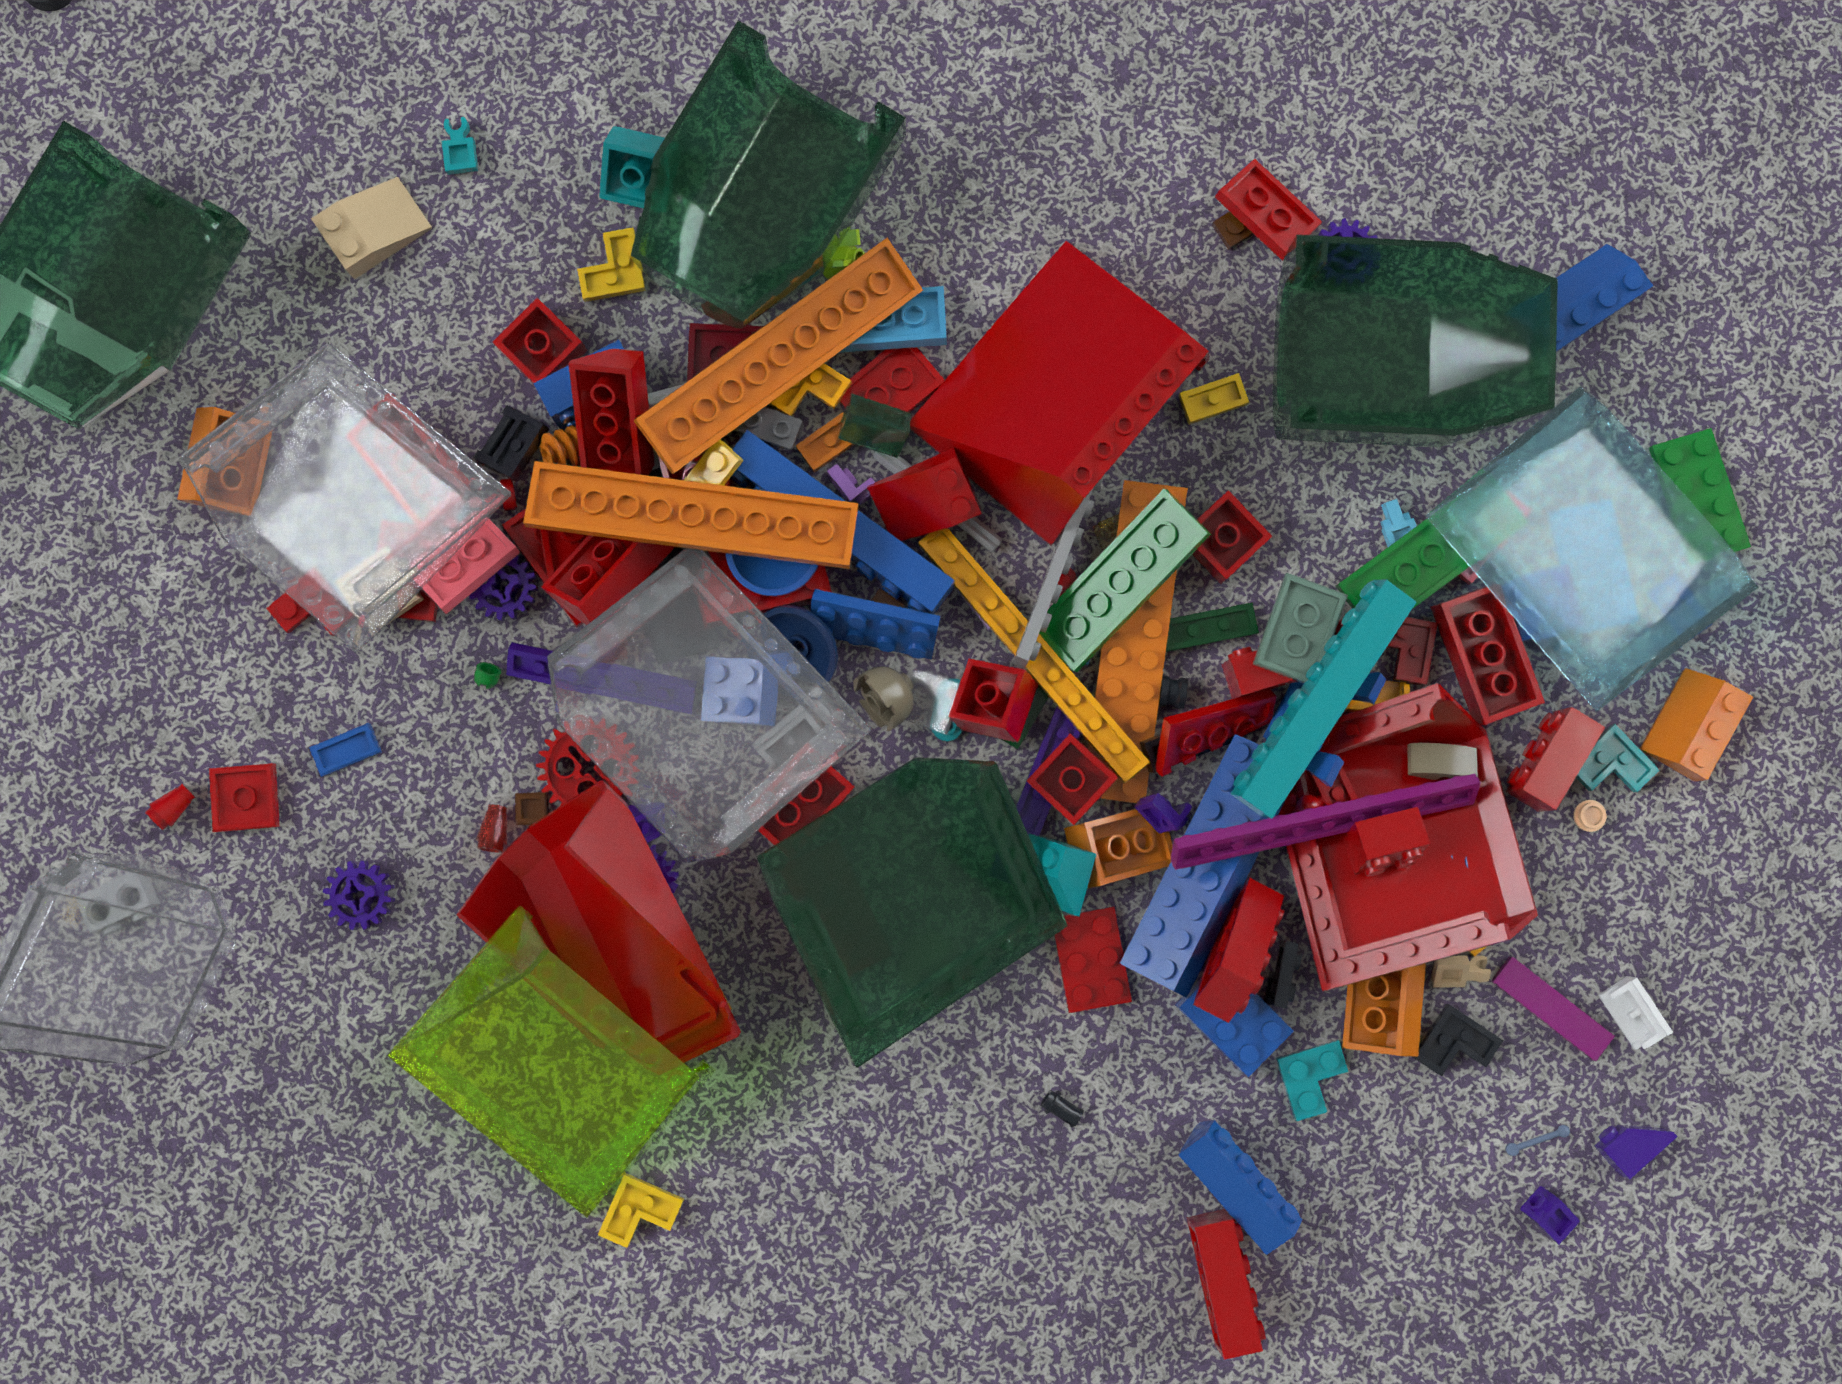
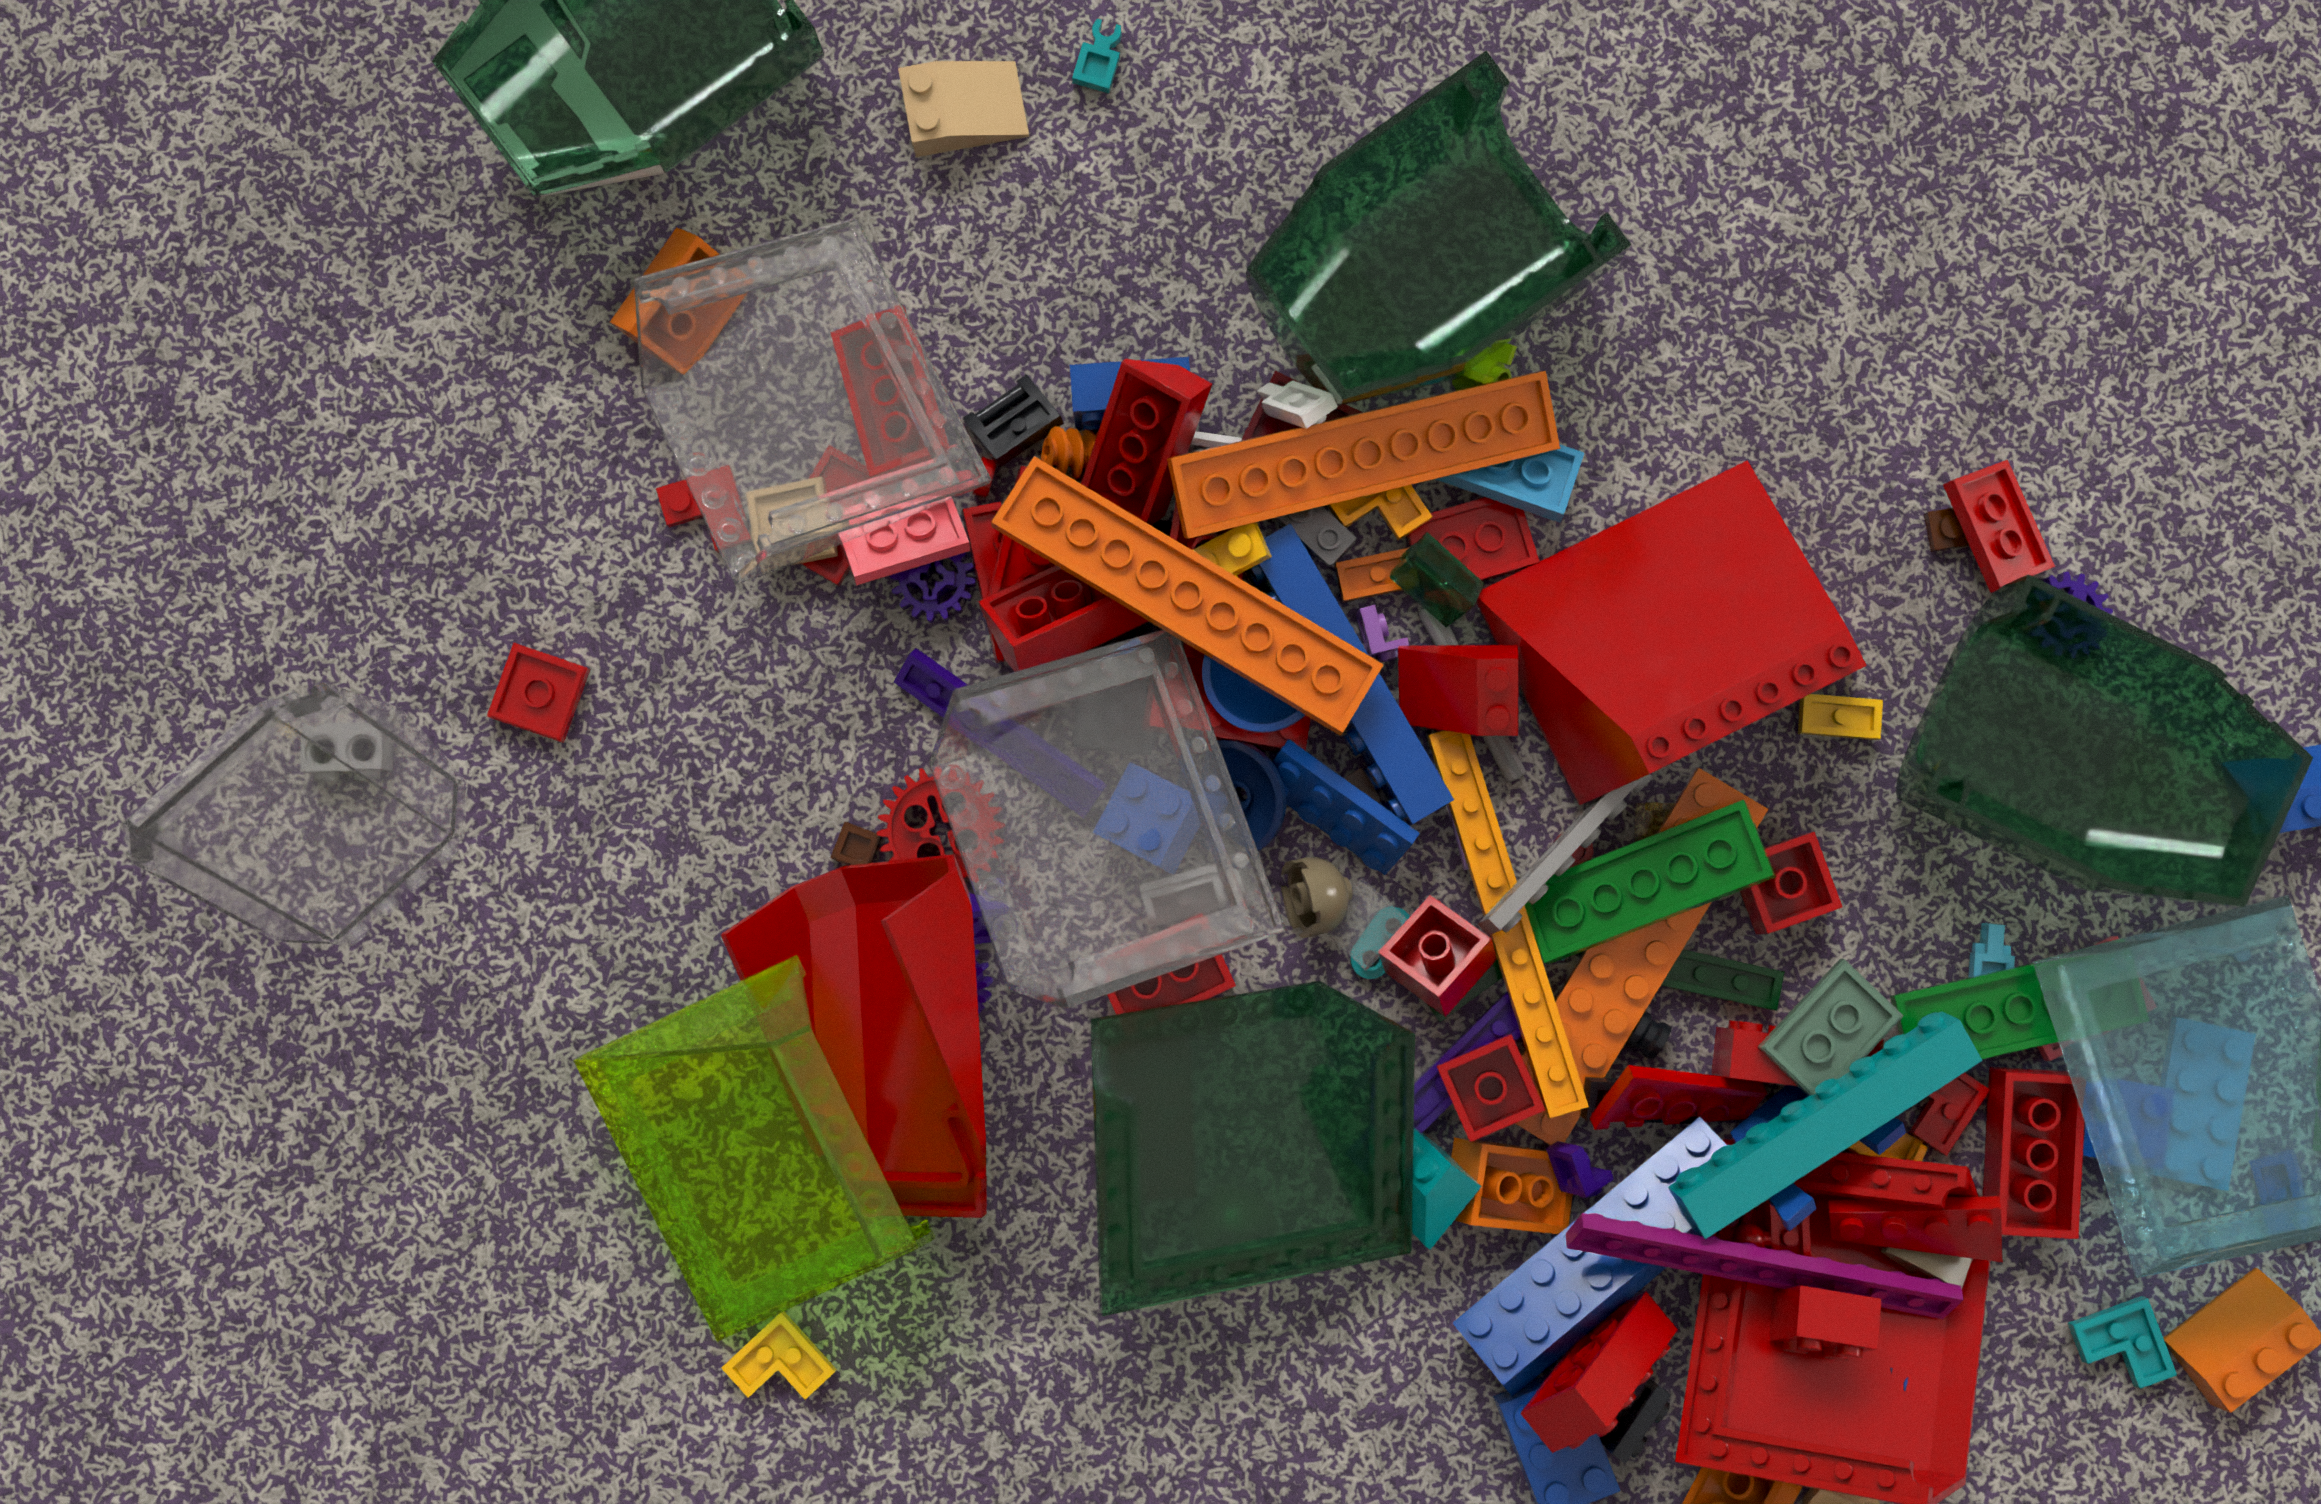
camera: 25 degrees right, 0 degrees up
(169, 807) = (451, 666): red cone -> none
(345, 749) = (675, 687): blue tile -> none
(354, 883) = (617, 875): dark purple gear -> none
(487, 674) = (871, 672): green hinge -> none
(493, 830) = (802, 853): clear red cone -> none
(539, 342) = (1094, 321): red brick -> none
(617, 276) = (1219, 281): yellow plate -> none
(627, 165) = (1284, 162): teal slope -> none
(713, 339) = (1297, 403): none -> white hinge
(1061, 1108) = (1310, 1455): black pin -> none
(1091, 959) = (1419, 1304): red plate -> none
(1453, 732) = (1963, 1229): none -> red wing
(1554, 759) = (2060, 1309): brick -> none
(1590, 815) = (2071, 1391): light nougat plate -> none

